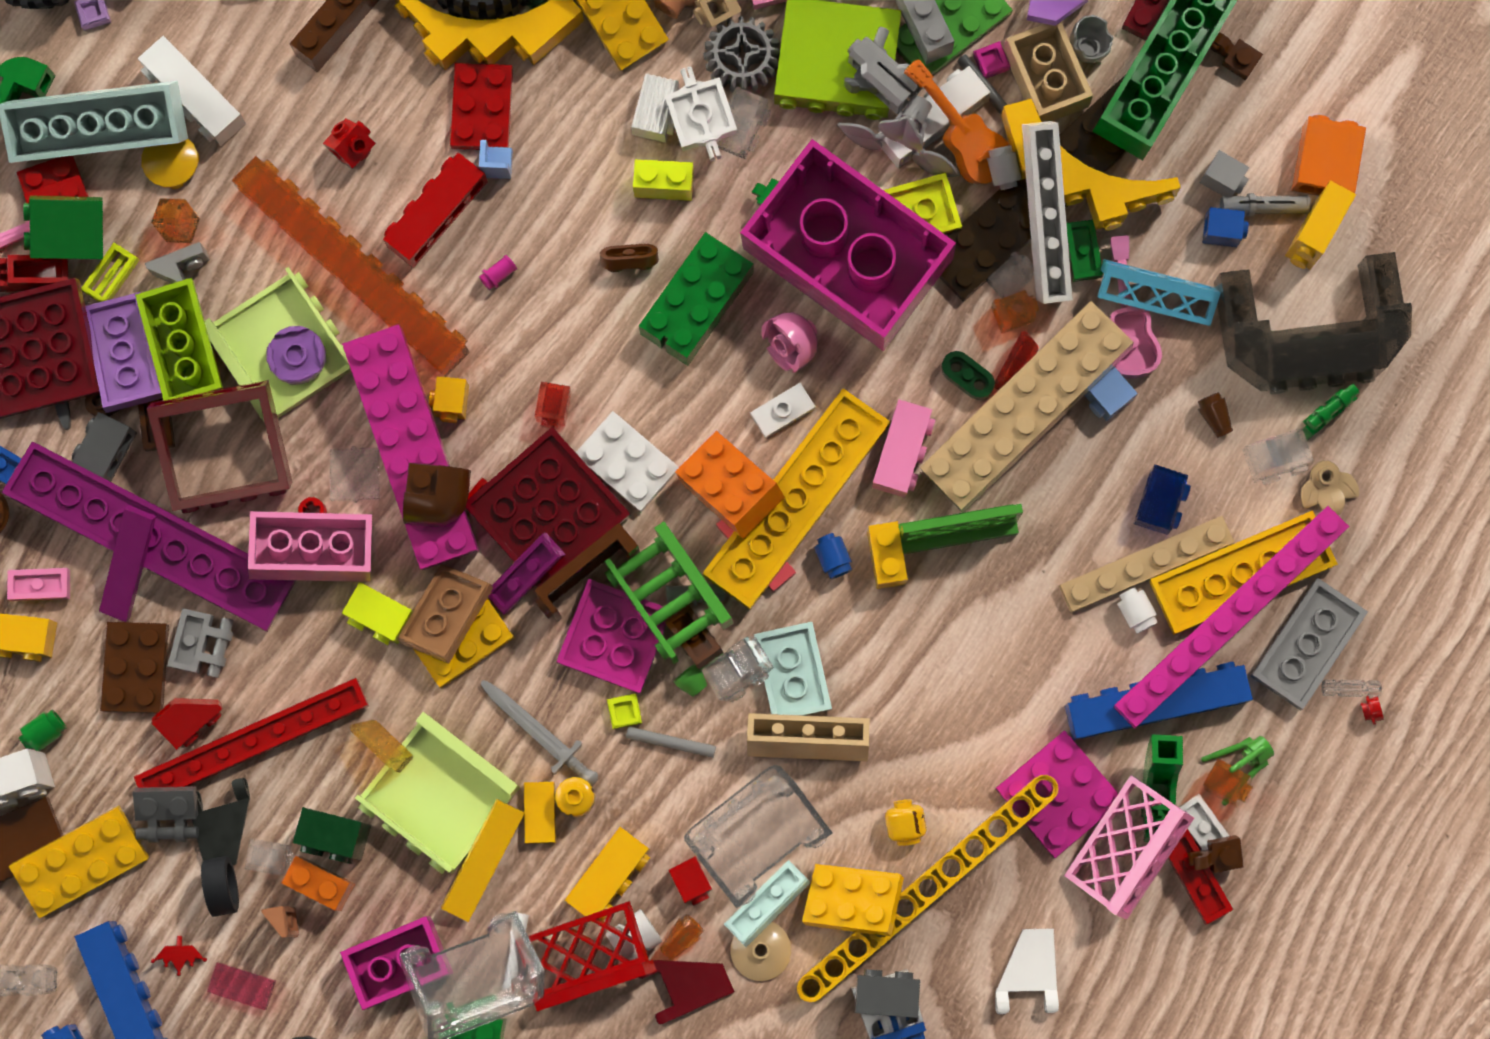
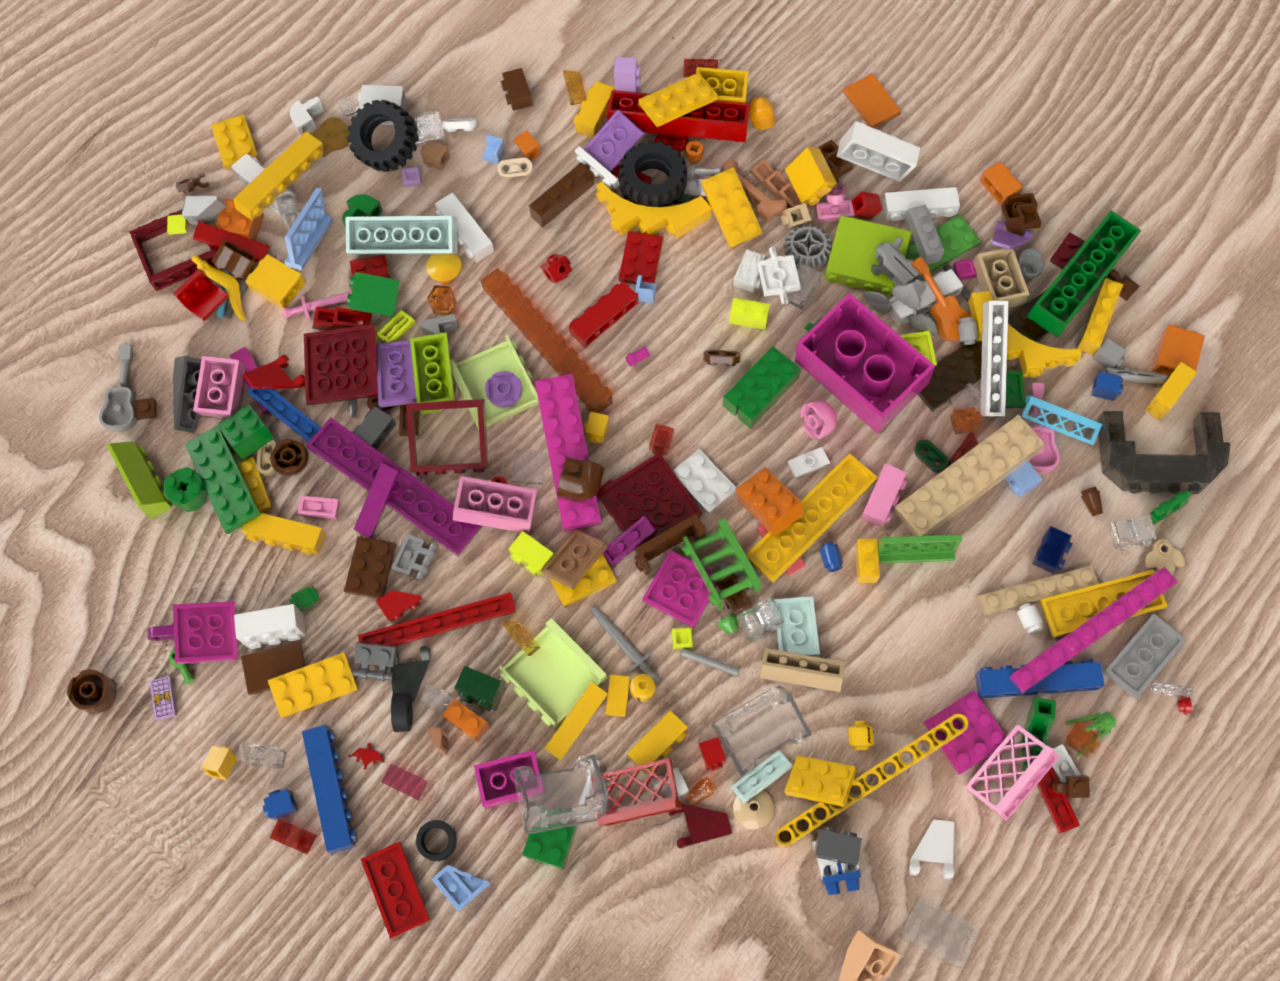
camera: 10 degrees right, 10 degrees down
(1205, 114) = (1100, 316): none -> yellow brick

